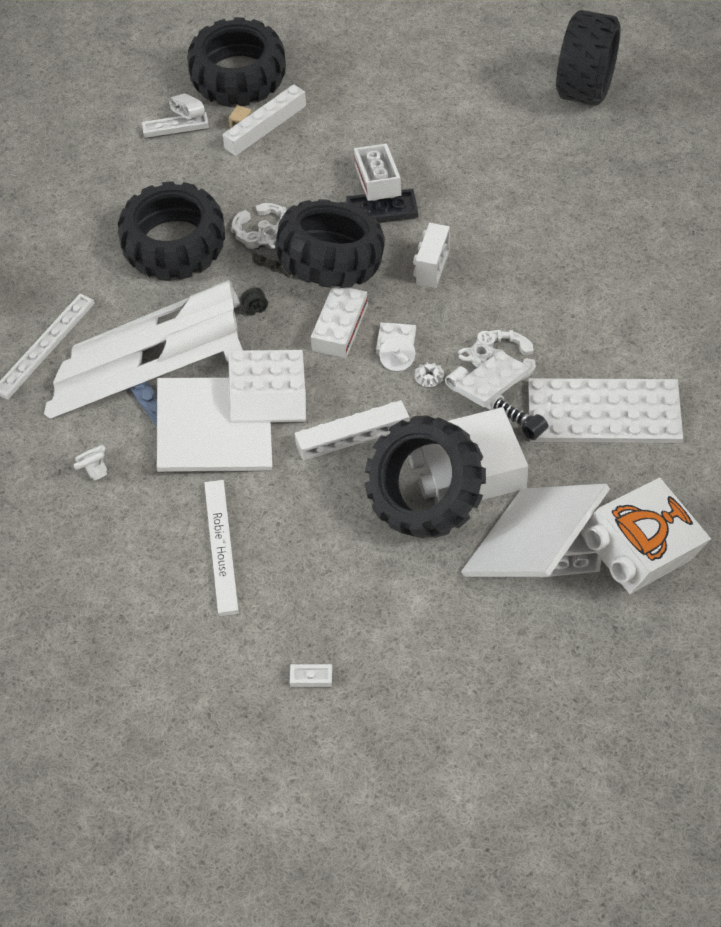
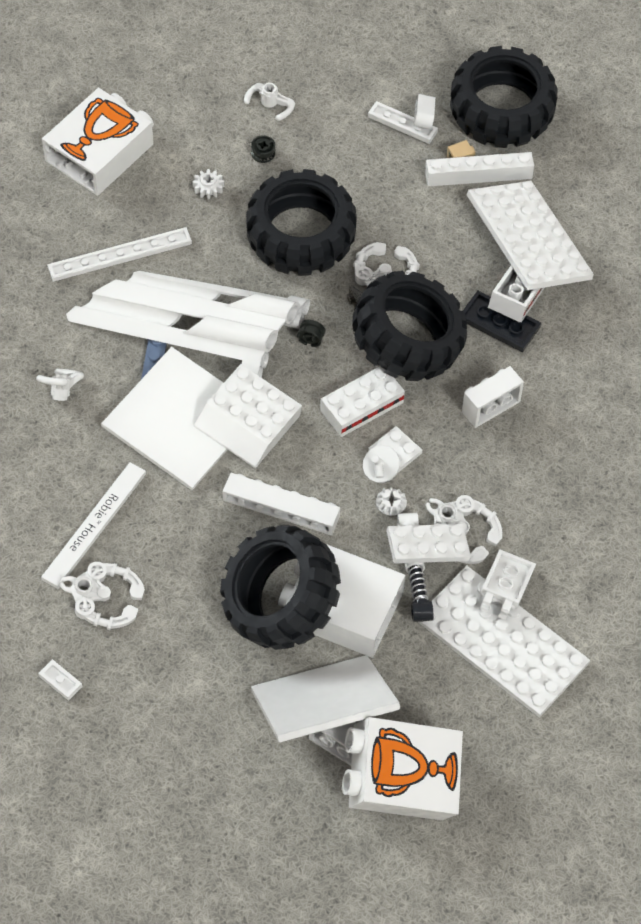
camera: 35 degrees right, 5 degrees up
(56, 167) = (271, 97): none -> white piece
(68, 253) = (208, 184): none -> white gear
(86, 204) = (257, 150): none -> pearl dark grey wheel
(273, 591) = (97, 591): none -> white piece
(348, 136) = (529, 235): none -> white plate
(570, 369) = (506, 582): none -> white tile

